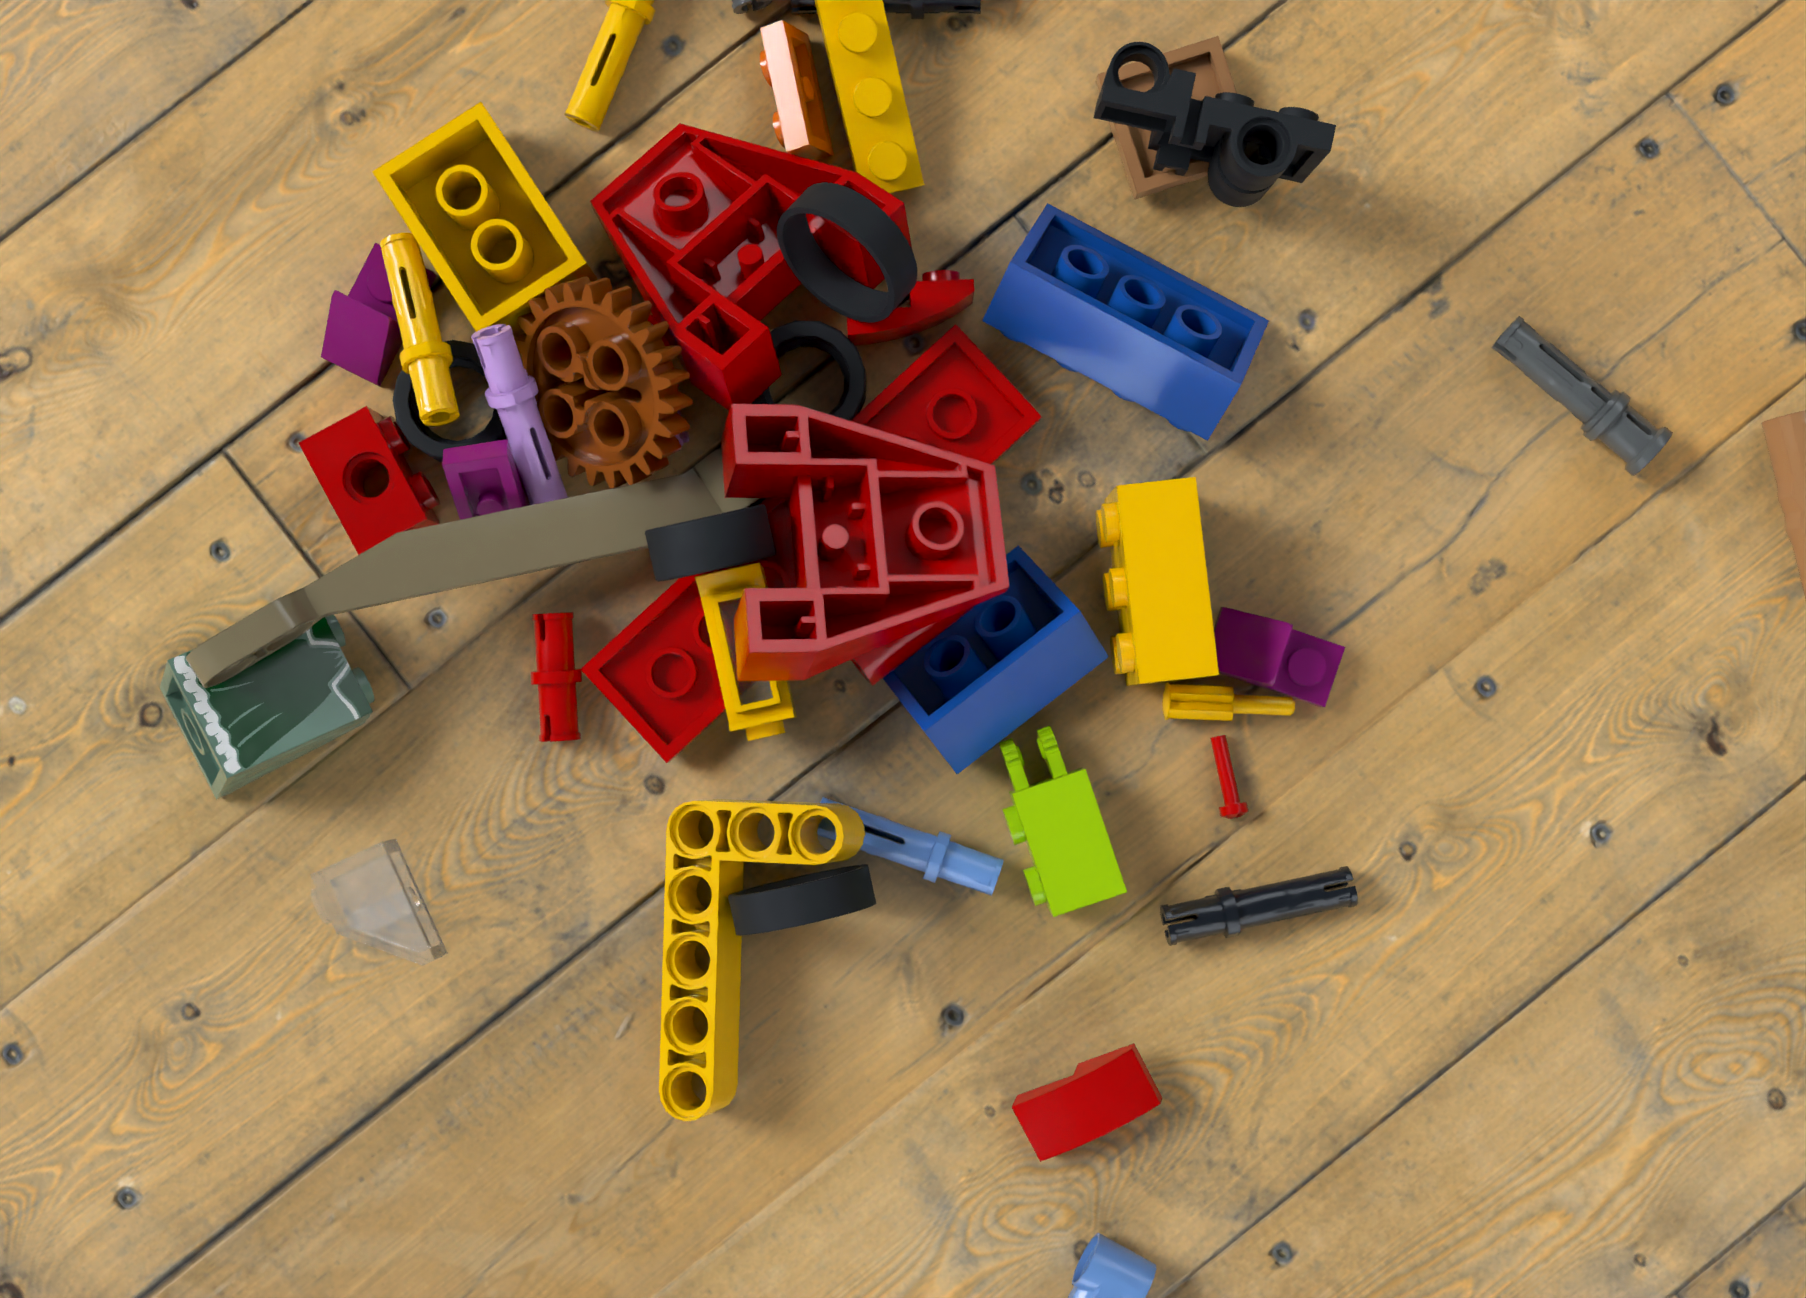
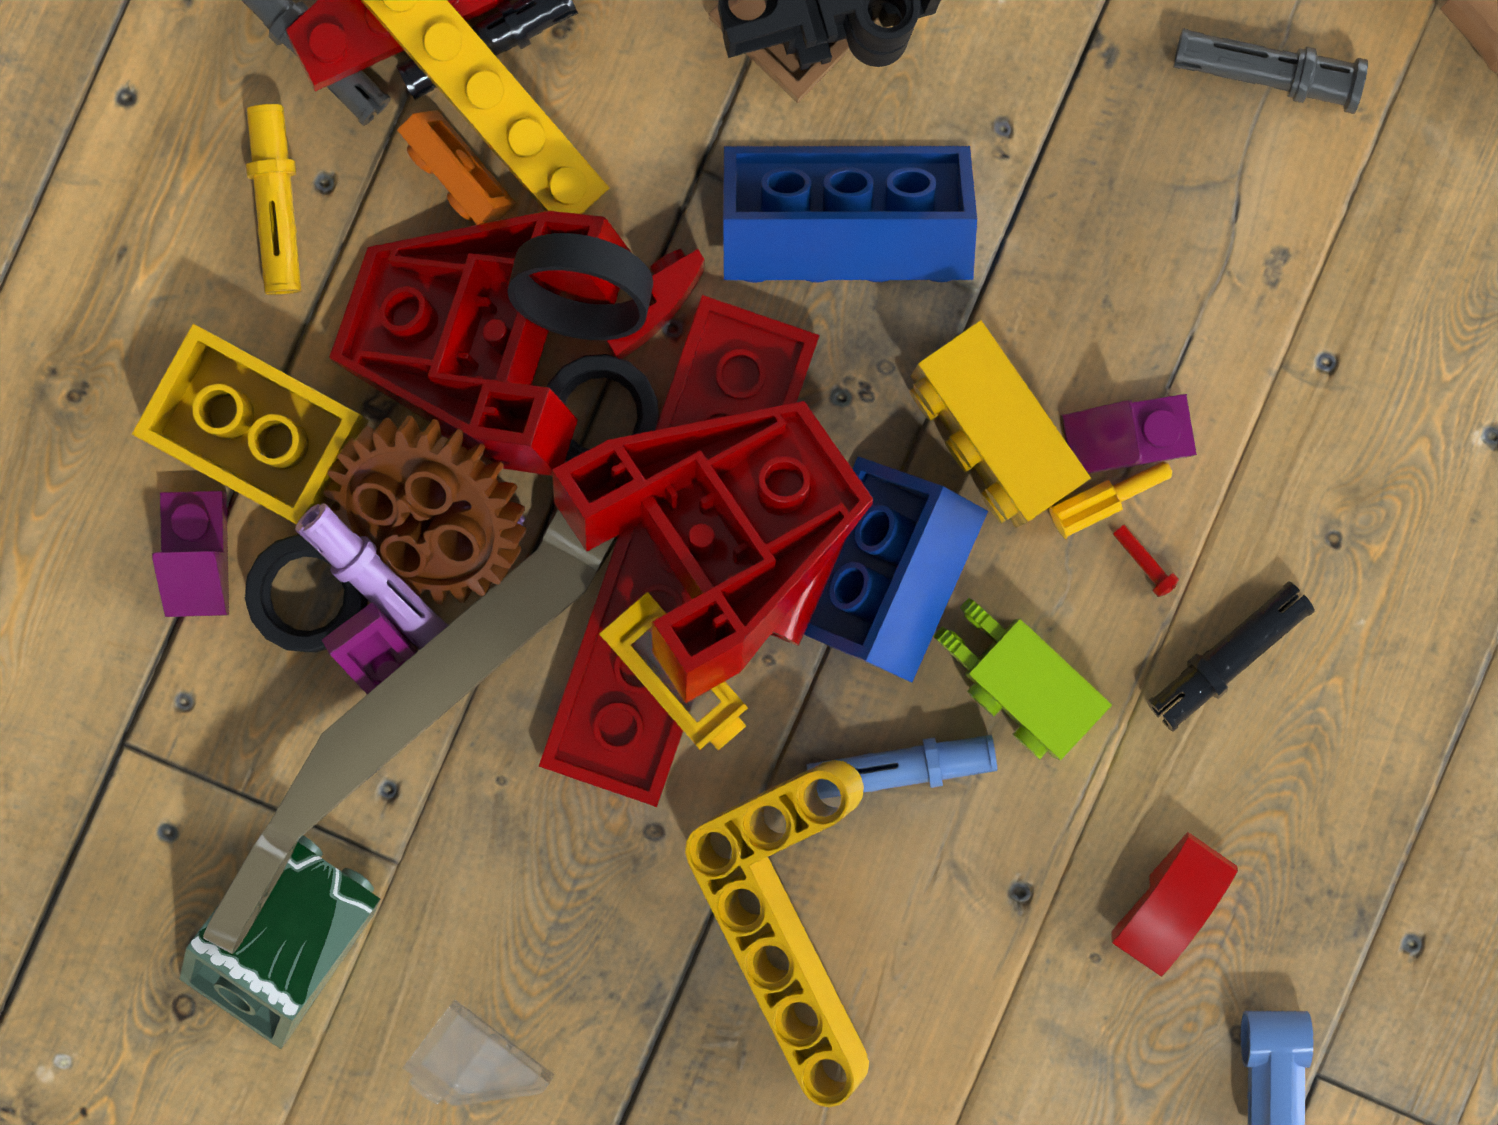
camera: 30 degrees left, 0 degrees up
(344, 456) = (234, 692): red brick -> none
(424, 353) = (261, 566): yellow pin -> none
(556, 676) = (520, 784): red pin -> none
(710, 543) = (596, 597): black tyre -> none
(802, 900) = (838, 861): black tyre -> none

